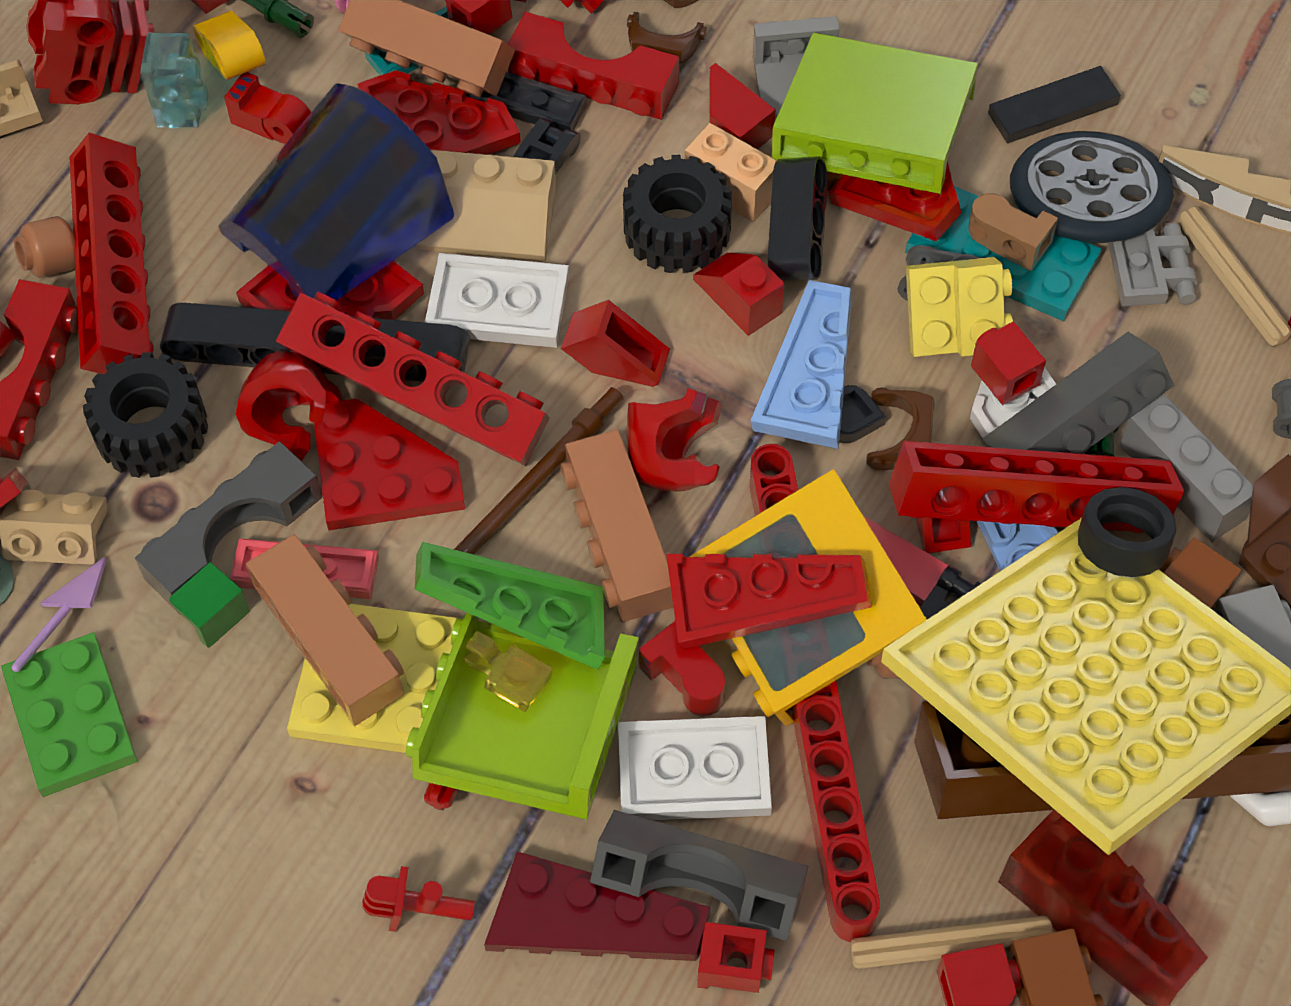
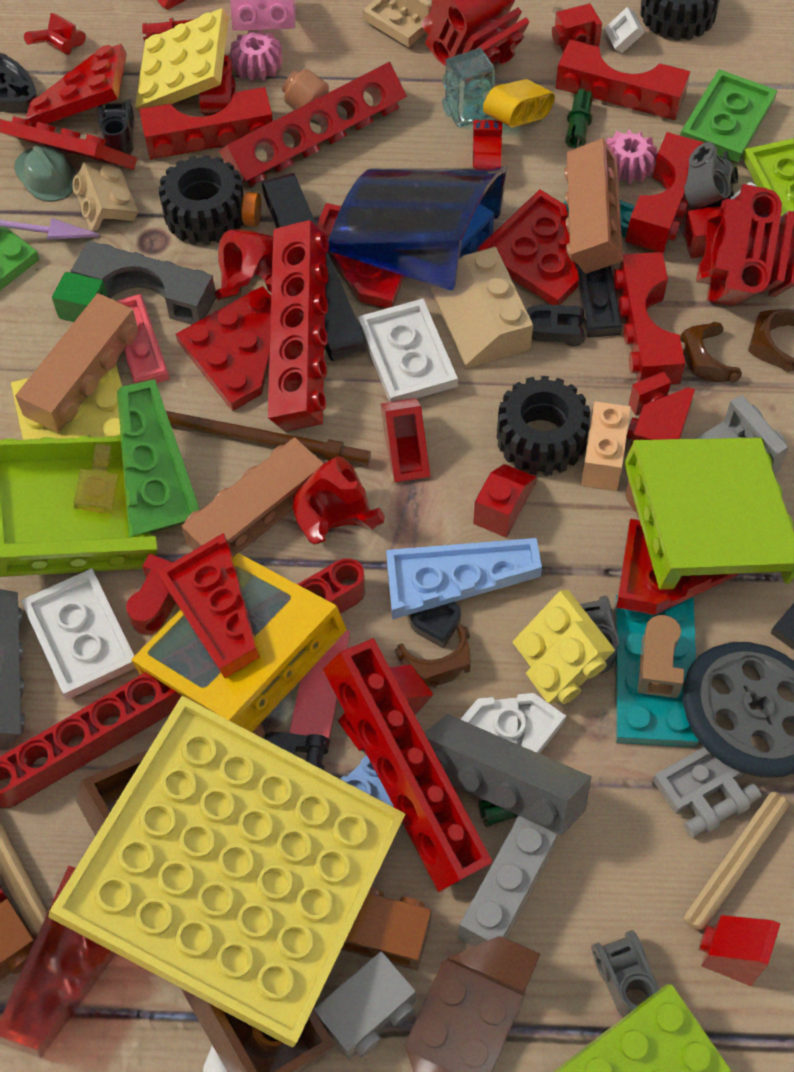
camera: 65 degrees right, 0 degrees up
(199, 371) = (251, 209): none -> orange tile
(689, 108) = (648, 391): none -> red plate
(797, 218) = (581, 503): black beam -> none
(1007, 362) = (519, 700): red brick -> none
(1116, 554) = (410, 822): black tyre -> none

